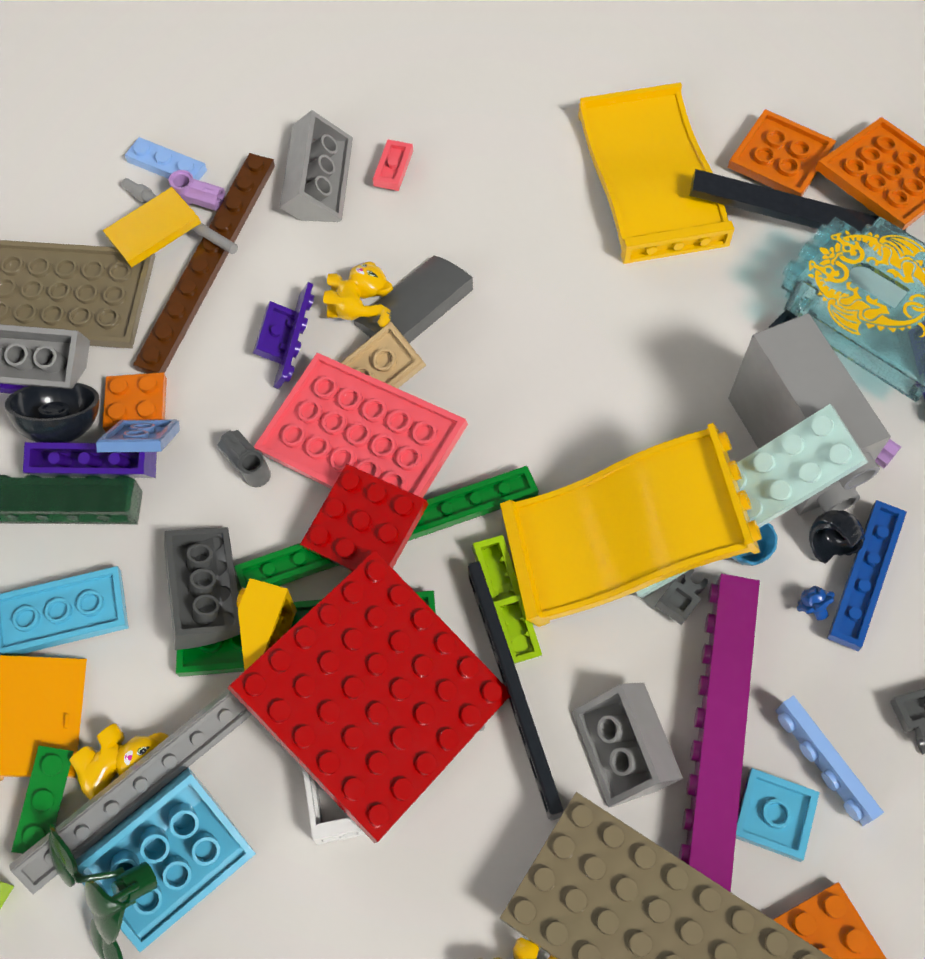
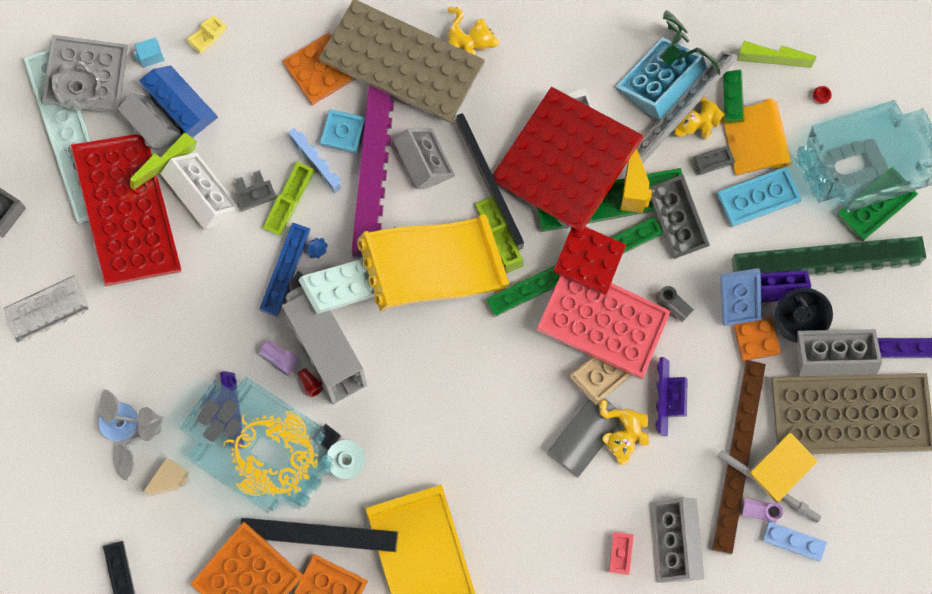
camera: 170 degrees right, 10 degrees up
(115, 685) = (713, 160): none -> dark grey plate
(760, 287) = (355, 457): none -> light aqua dish
(867, 699) = (289, 198): none -> lime slope

